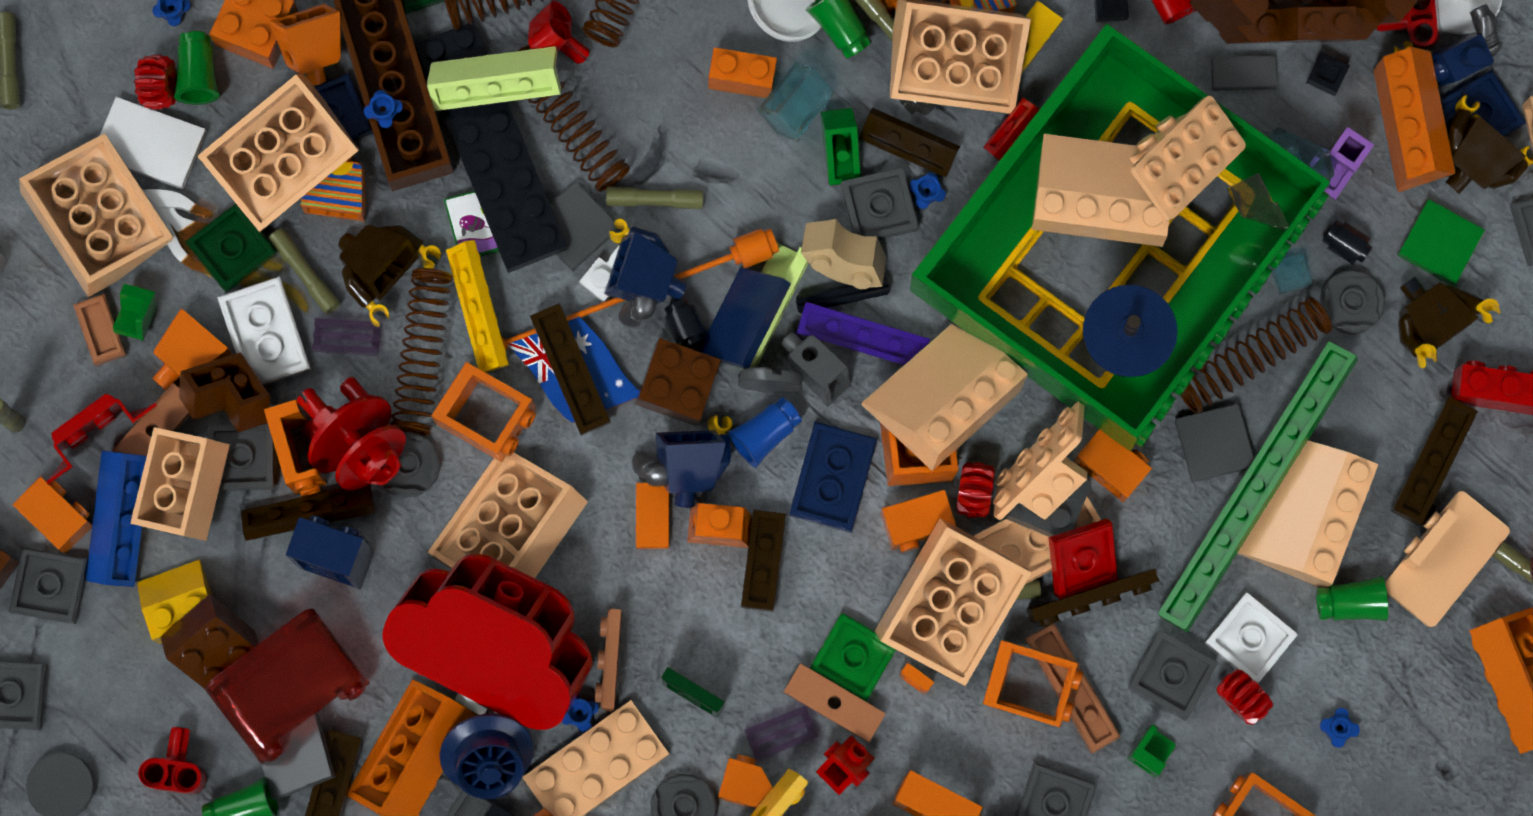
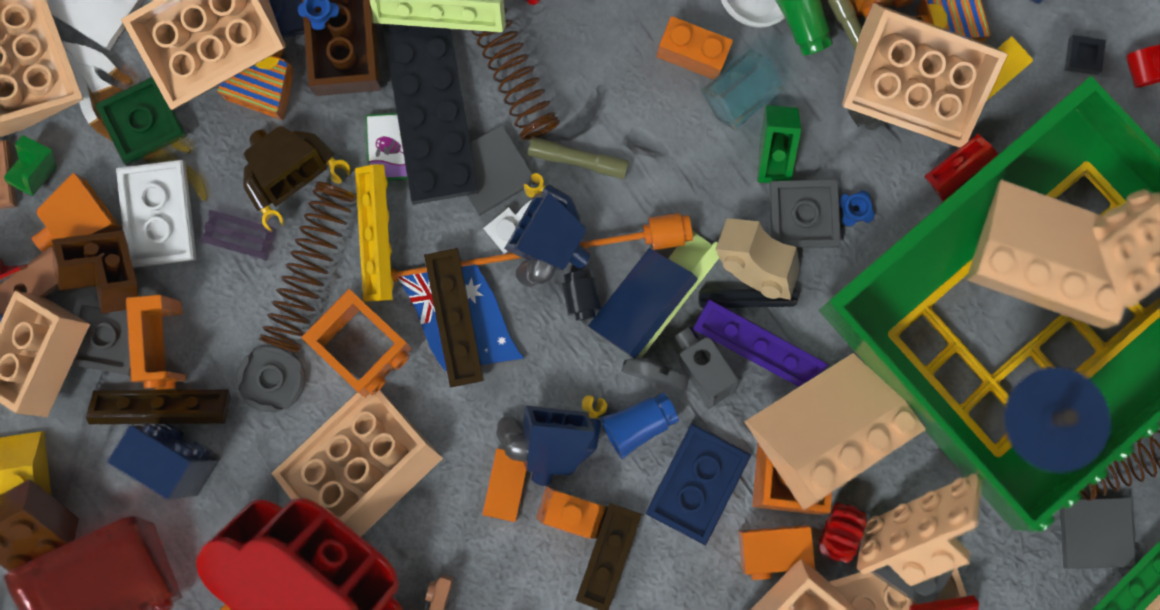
camera: 15 degrees right, 5 degrees up
(292, 255) = (218, 177): olive piece -> none
(353, 437) = (215, 344): red piece -> none
(677, 382) = (560, 354): reddish brown brick -> none
(909, 142) = (849, 155): dark brown plate -> none
(1113, 465) = (994, 541): orange brick -> none

